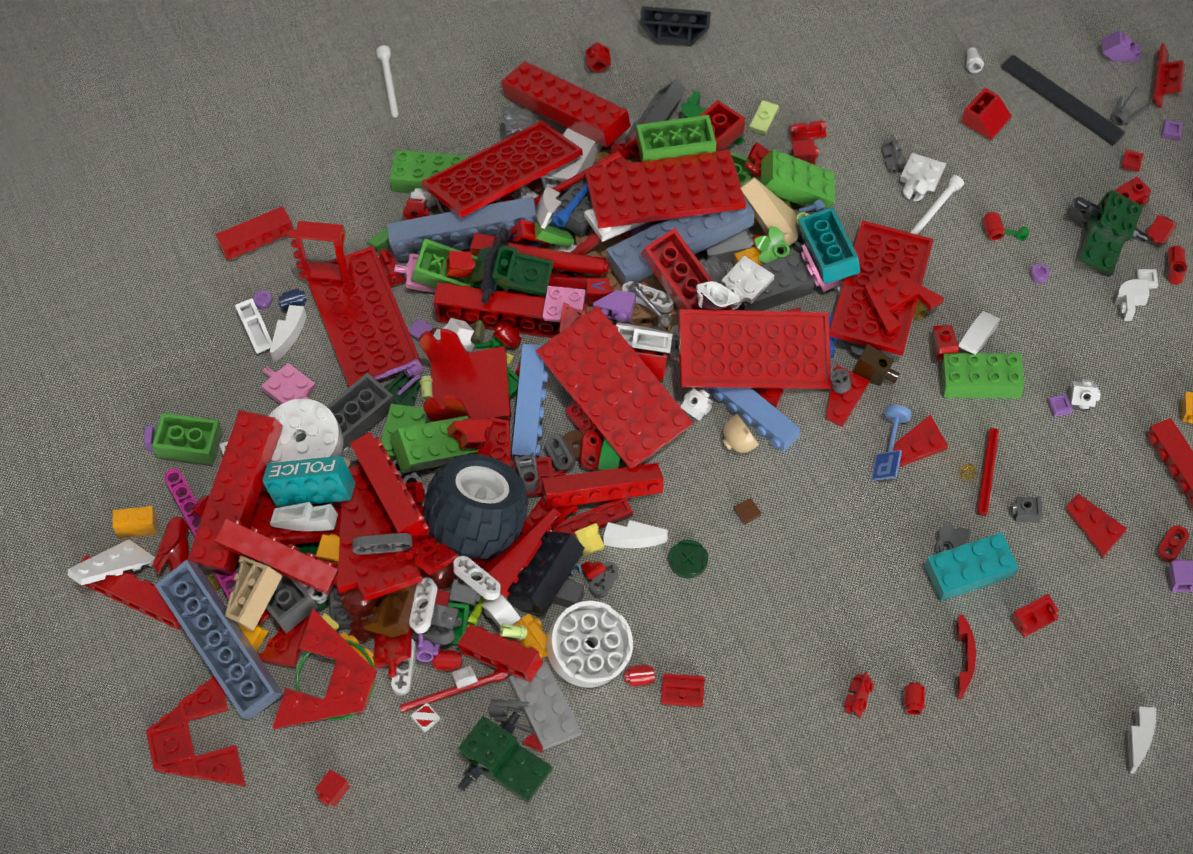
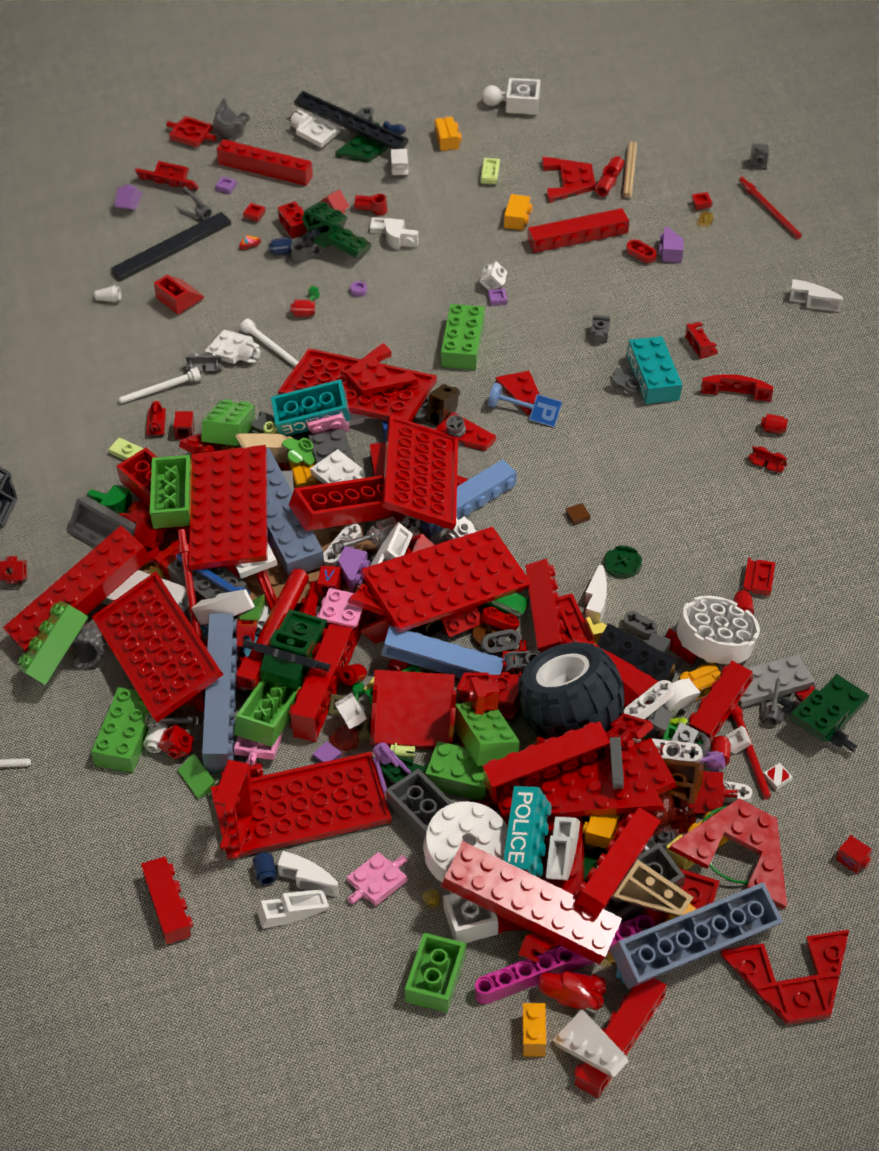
camera: 85 degrees left, 10 degrees down
(149, 436) = (425, 1015): medium lavender tile -> none
(262, 299) = (252, 901): medium lavender tile -> none
(459, 264) = (274, 689): red brick -> none
(501, 93) = (52, 642): none -> bright green brick
(511, 631) = (703, 681): yellowish green pin -> none
(593, 569) = (631, 626): red tile -> none
(715, 296) = (375, 475): white hat -> none
(738, 436) = (501, 504): tan cylinder -> none
(818, 206) = (260, 413): medium blue hand -> none
(874, 149) = (192, 375): none -> white piece
(944, 341) = (426, 353): red brick -> none
(965, 468) = (558, 361): clear yellow hinge -> none
(979, 332) = (421, 328): white slope -> none
(988, 471) = (557, 350): red axle -> none
(1082, 188) = (280, 246): none -> dark blue brick
(1086, 164) = (249, 241): none -> red tile
(1096, 524) = (616, 292): red wing -> none

